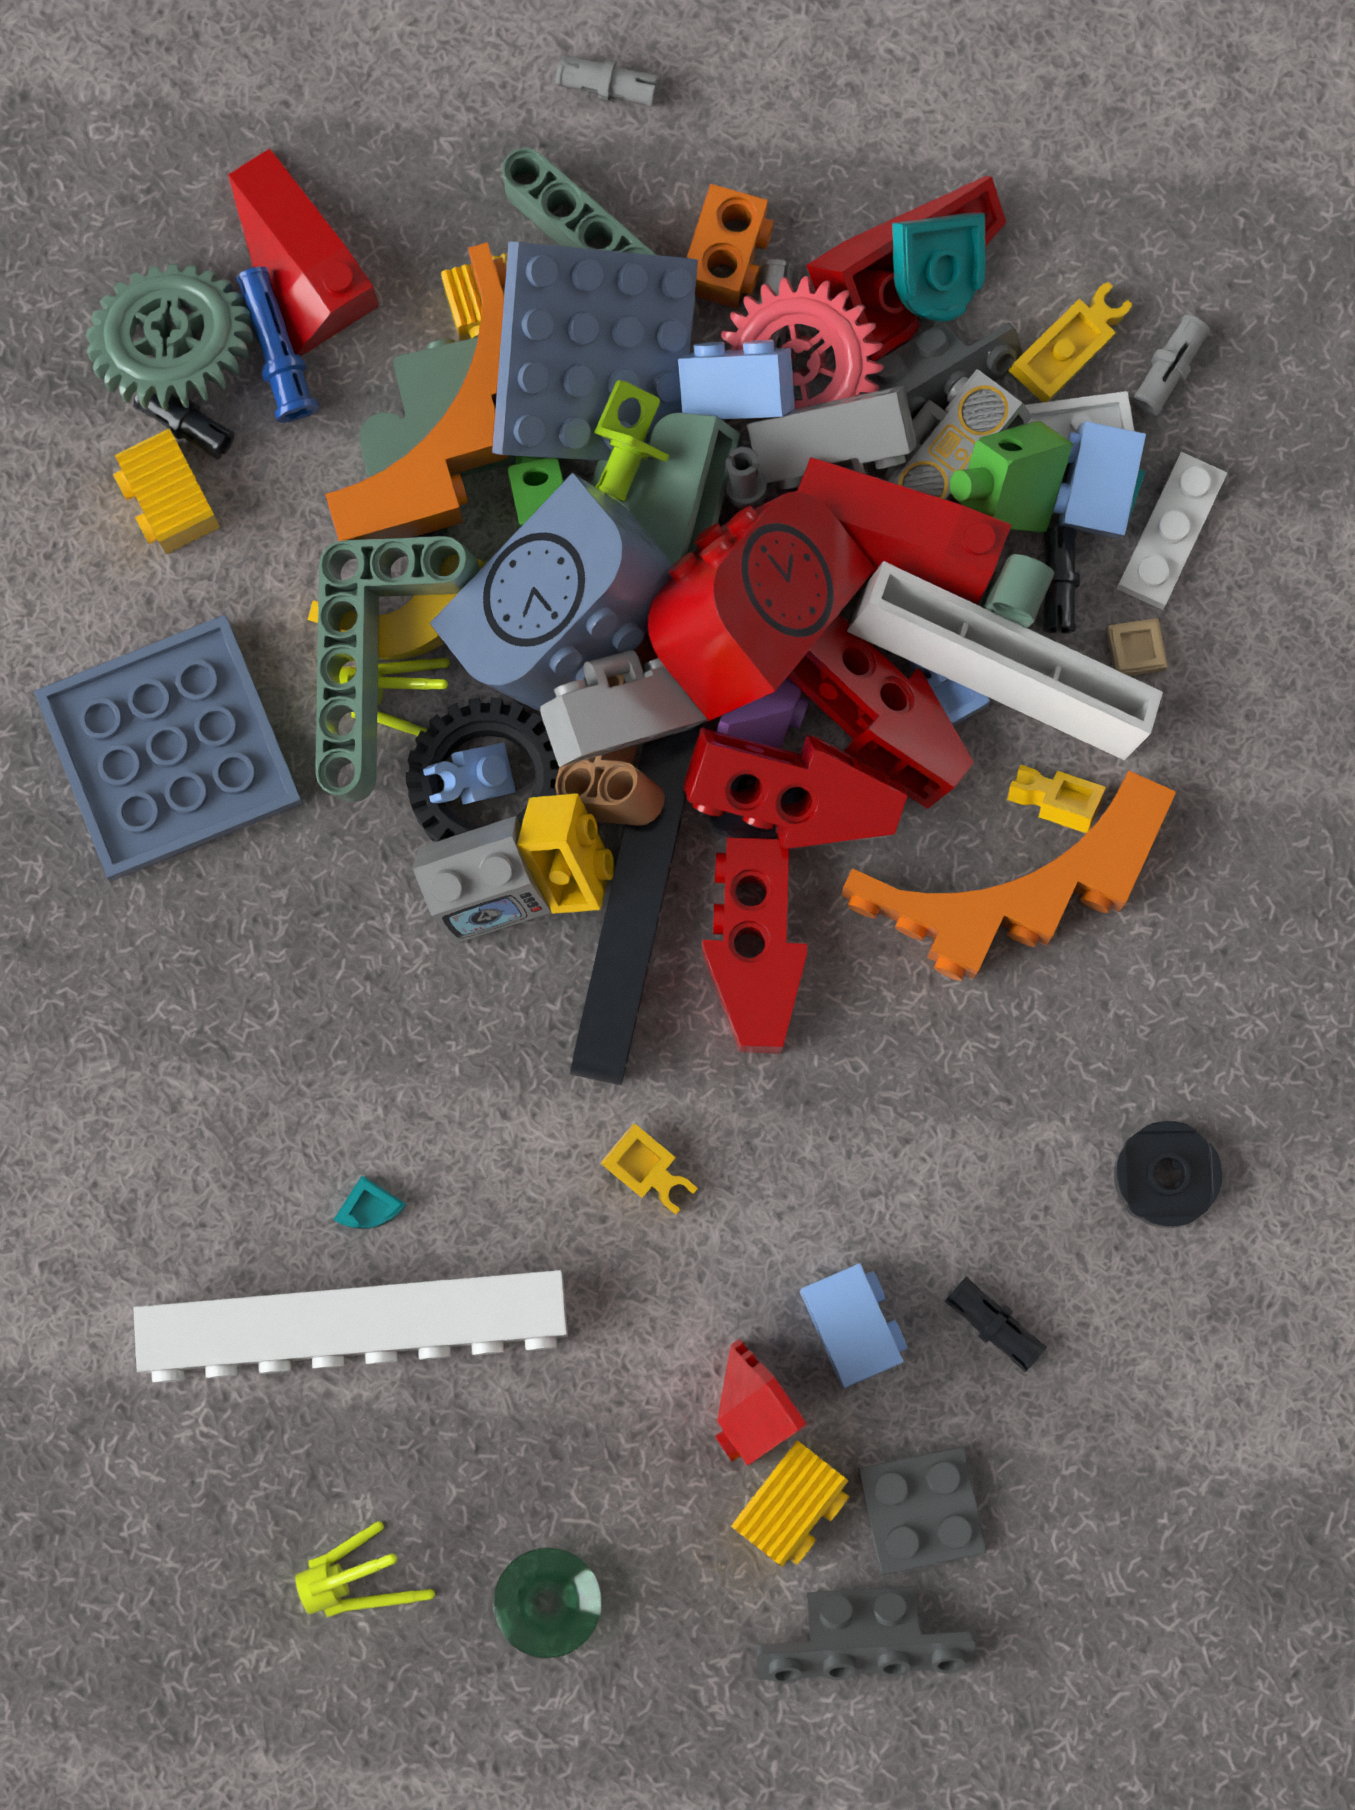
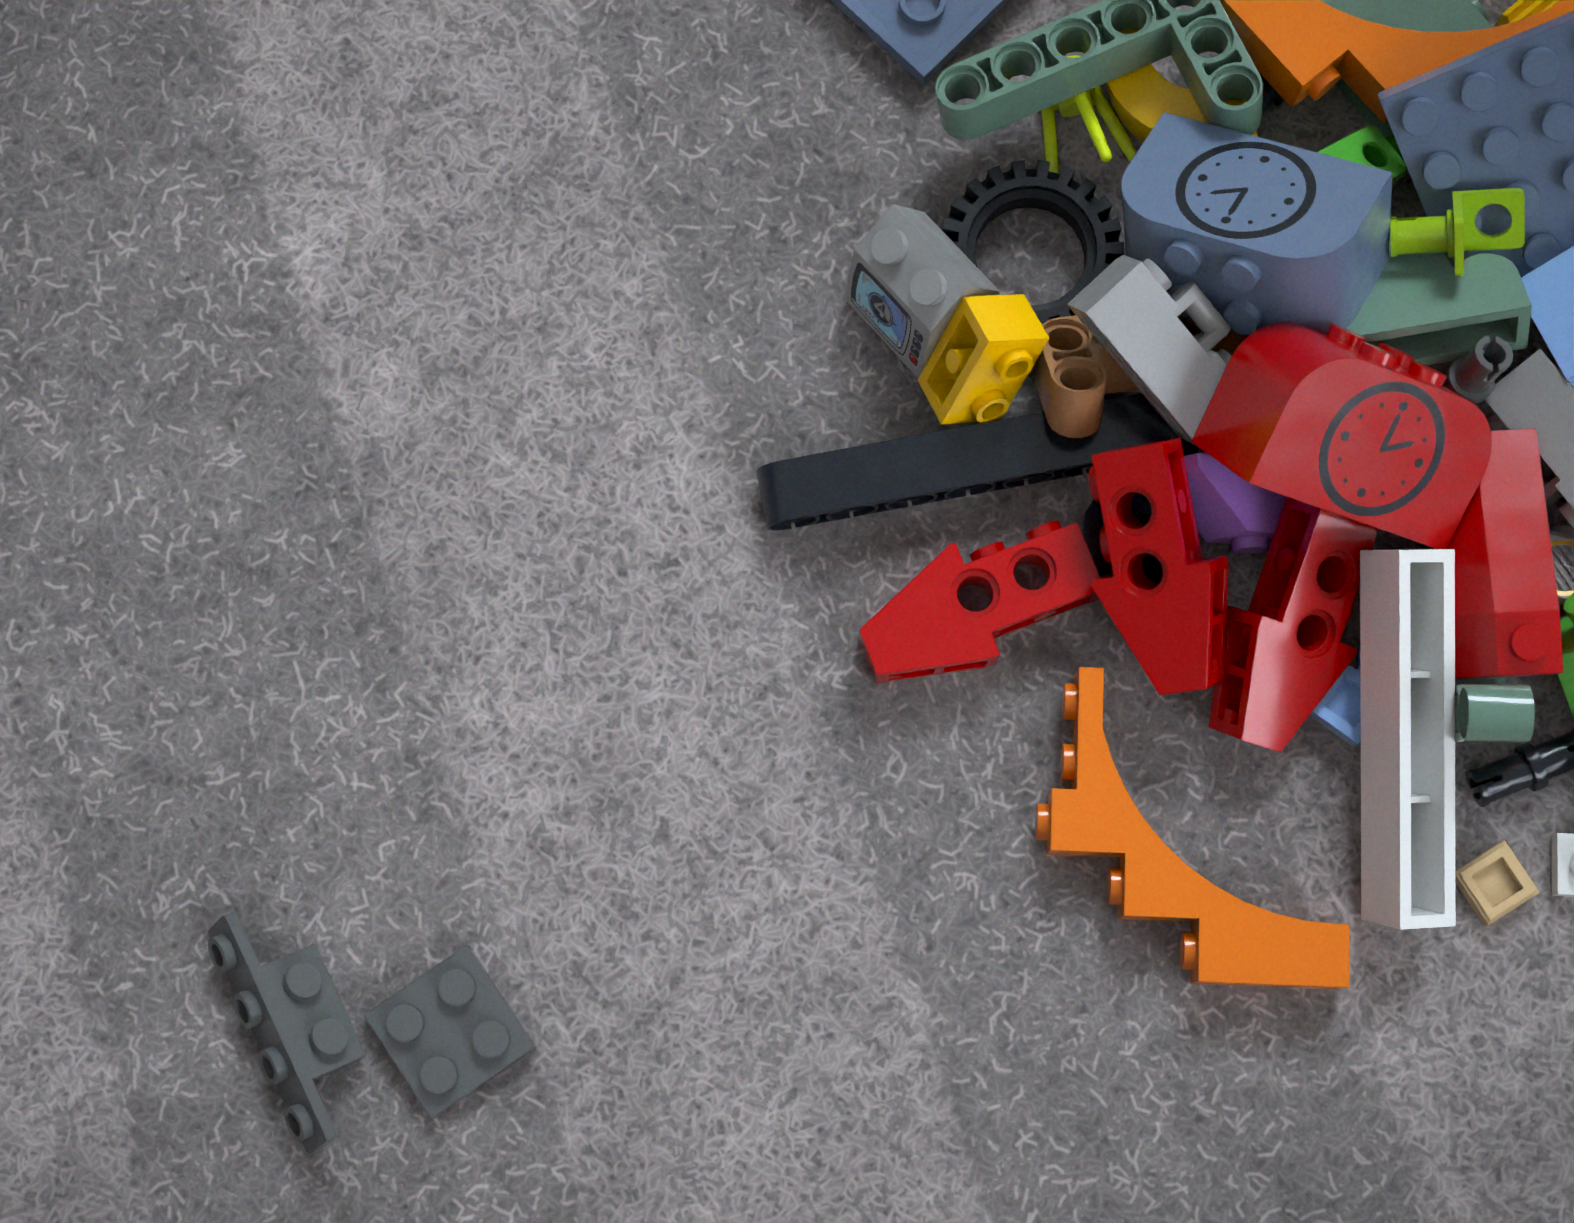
camera: 70 degrees right, 0 degrees up
(325, 1584) = (133, 451): neon yellow plant -> none
(350, 1323) = (406, 362): white brick -> none
(368, 1206) = (535, 329): teal tile -> none
(474, 775) = (1031, 240): light blue plate -> none
(518, 1610) = (174, 660): clear green dish -> none
(643, 1164) = (693, 583): yellow plate -> none
(753, 1408) = (481, 802): red wedge -> none
(791, 1505) = (397, 887): yellow brick -> none
(853, 1326) = (613, 875): light blue brick -> none
(995, 1324) = (679, 1029): black pin -> none
(1062, 800) = (1283, 869): yellow plate -> none
(1188, 1152) = (954, 1165): black plate -> none

